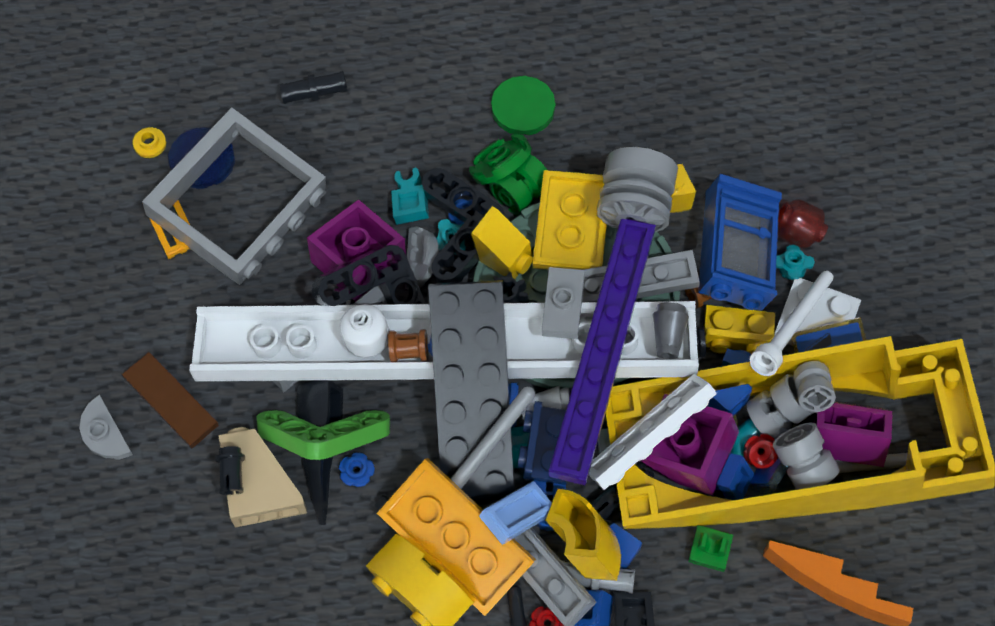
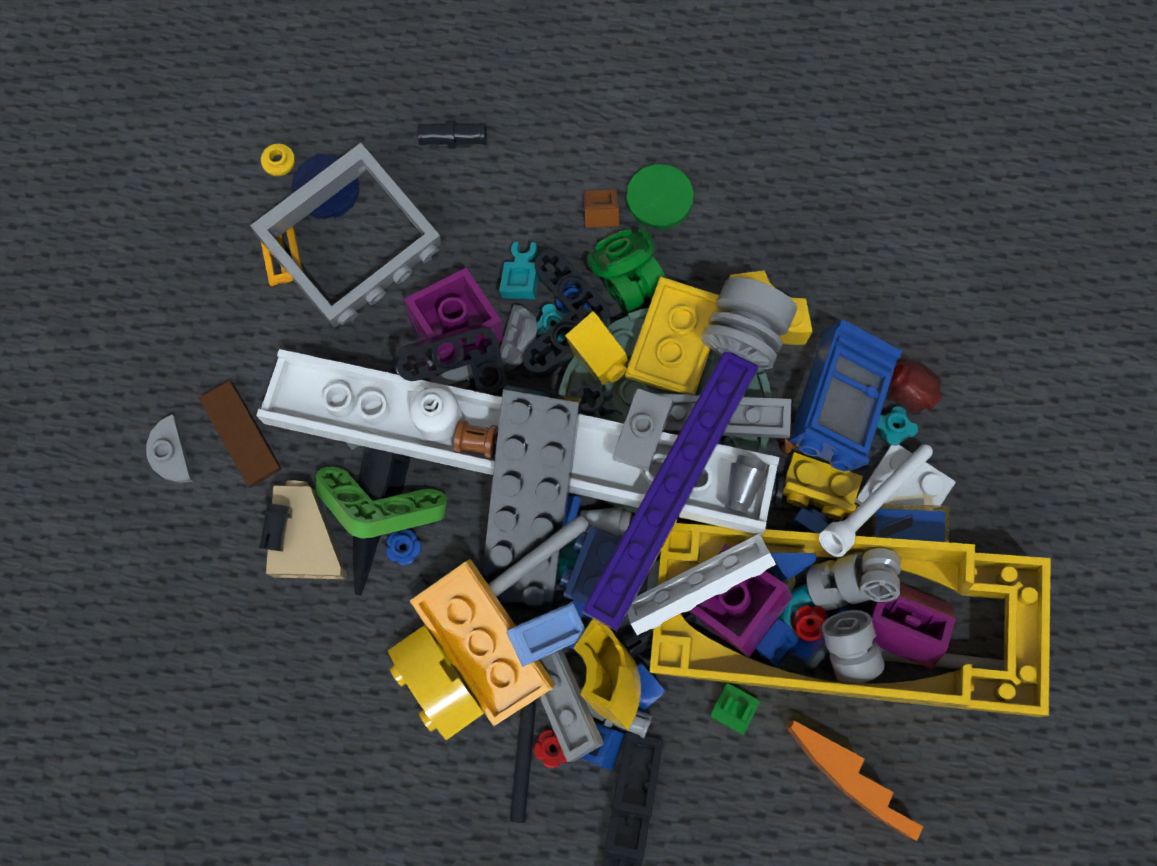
camera: 15 degrees right, 10 degrees up
(471, 126) = (601, 208): none -> dark orange slope

